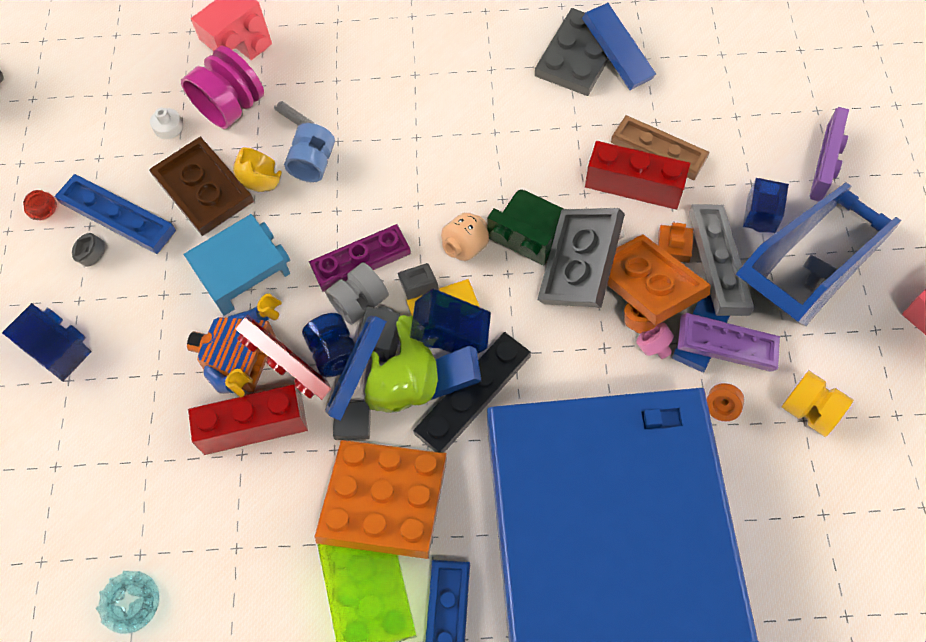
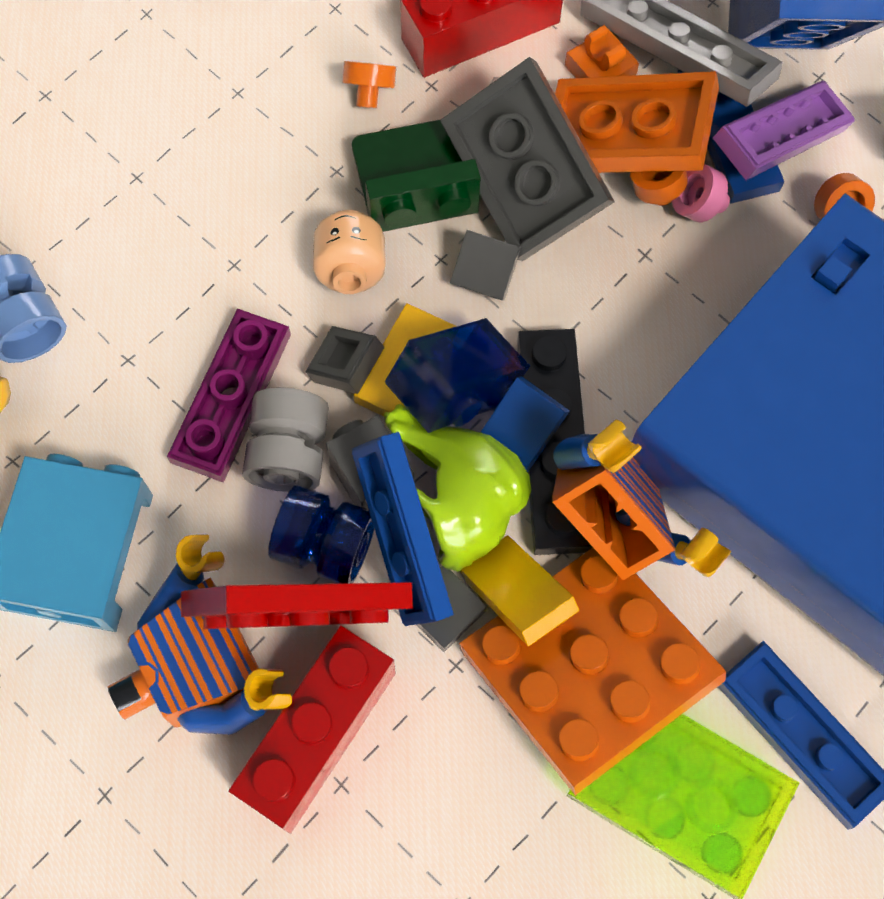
camera: 50 degrees left, 5 degrees up
(383, 439) = (520, 591): none -> yellow tile
(456, 439) = (622, 508): none -> torso
(520, 290) = (485, 265): none -> dark grey tile
(553, 168) = (369, 79): none -> orange tile

